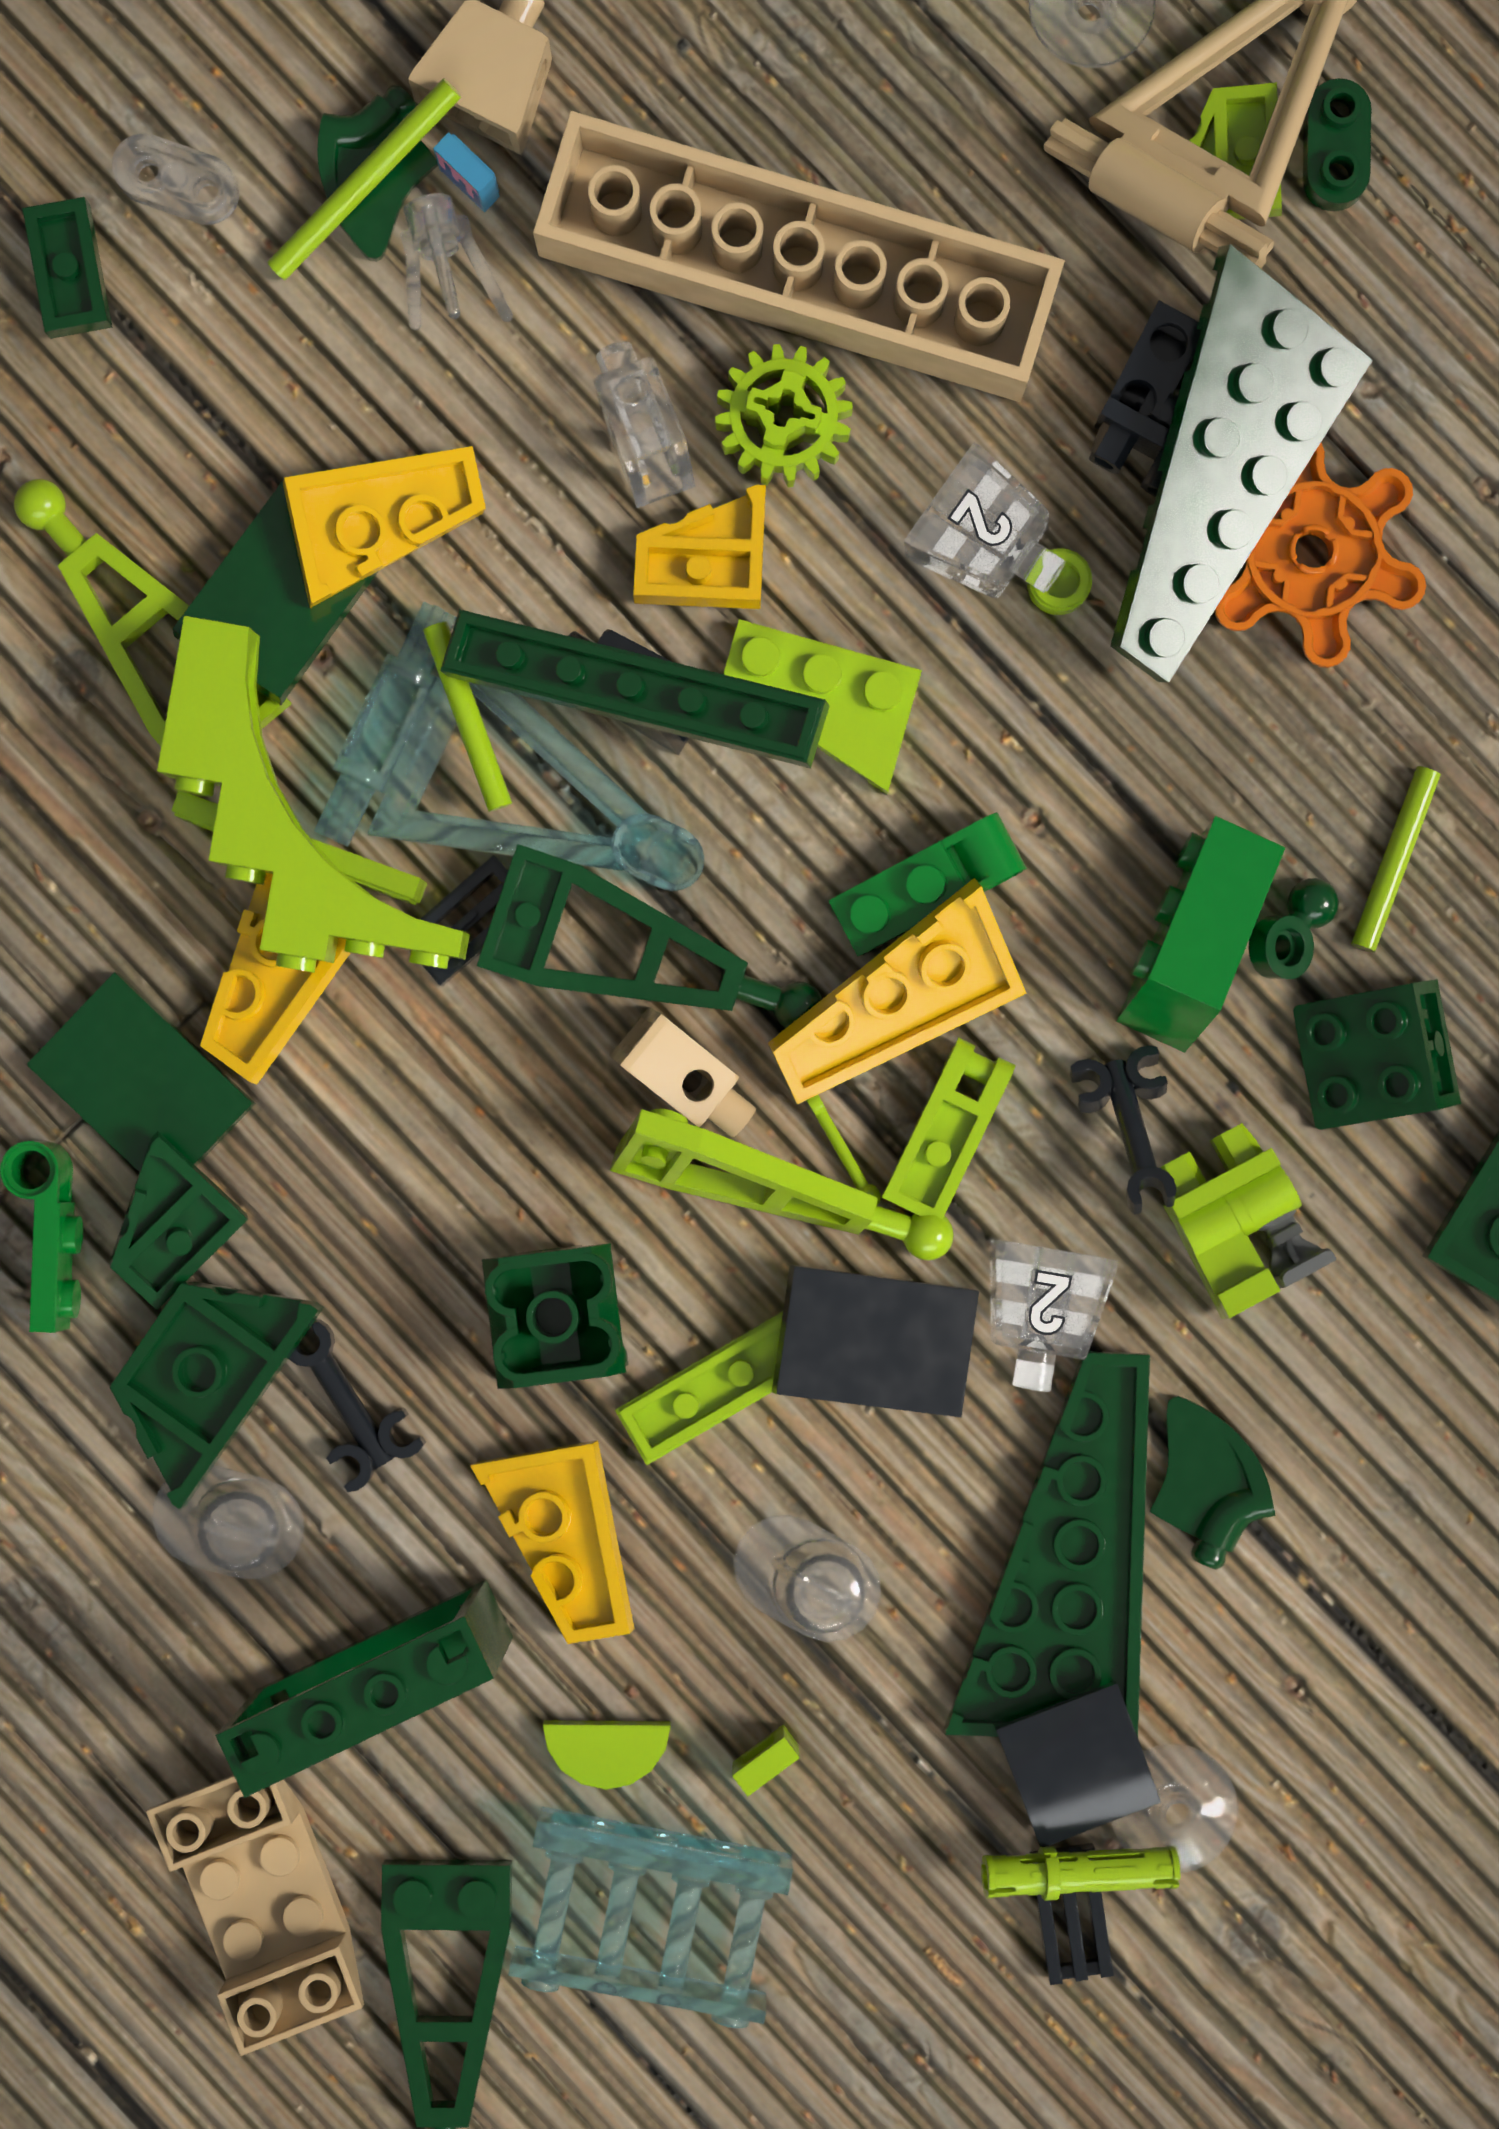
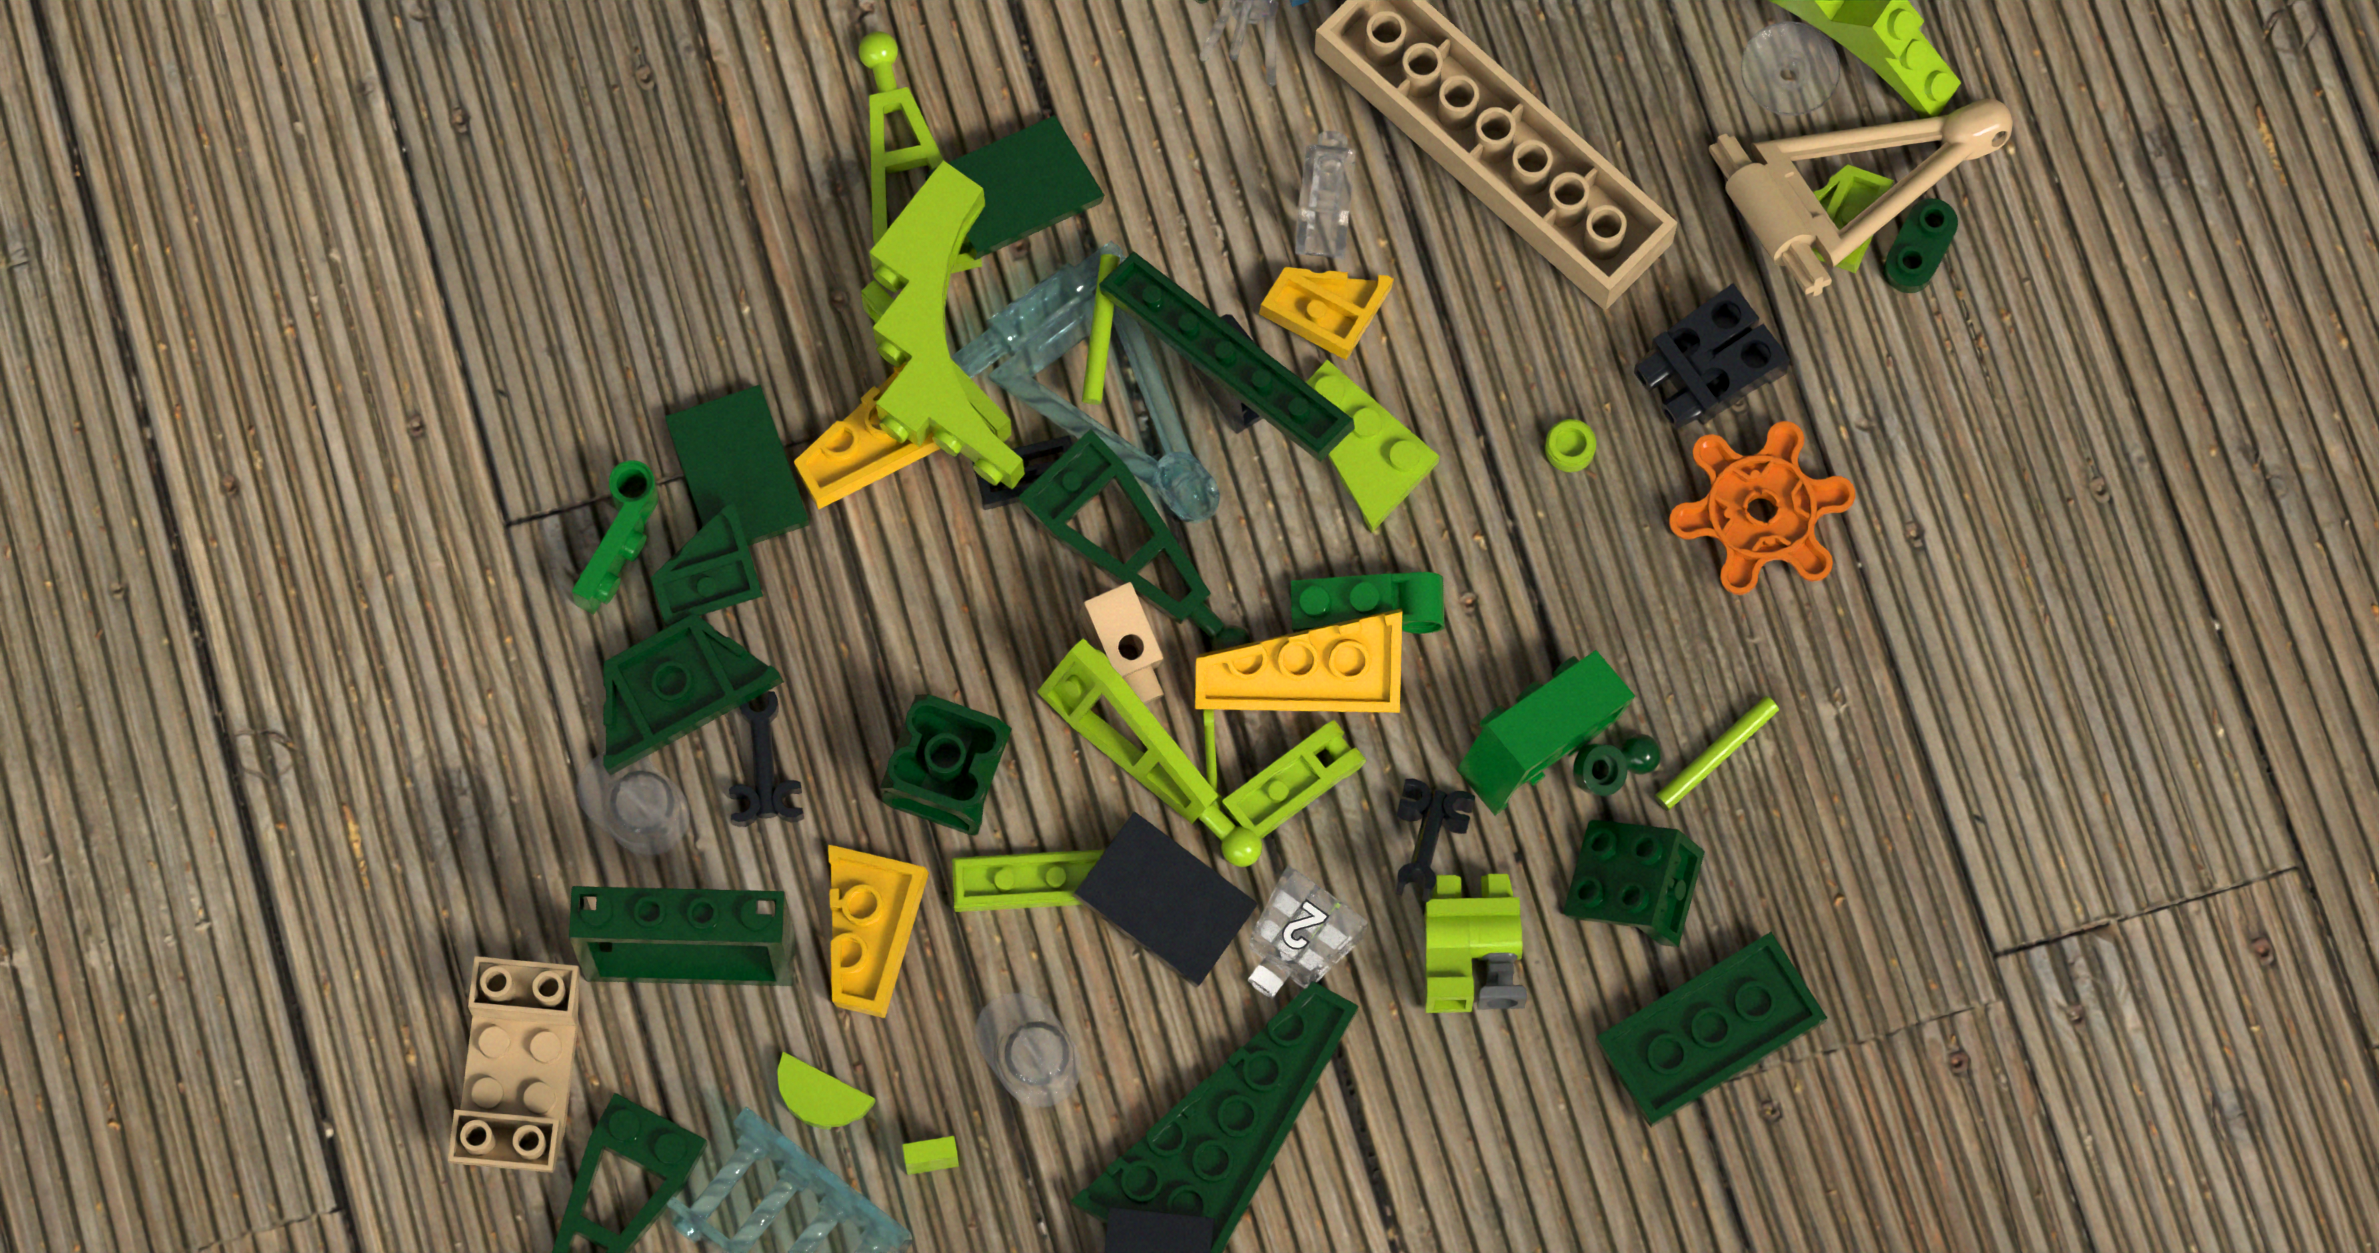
camera: 30 degrees right, 15 degrees down
(376, 513) = (1110, 166): yellow wing -> none
(808, 420) = (1420, 257): lime gear -> none
(984, 530) = (1531, 381): clear torso -> none
(1210, 1482) = (1357, 1125): dark green arm -> none
(1238, 440) = (1745, 398): wing -> none

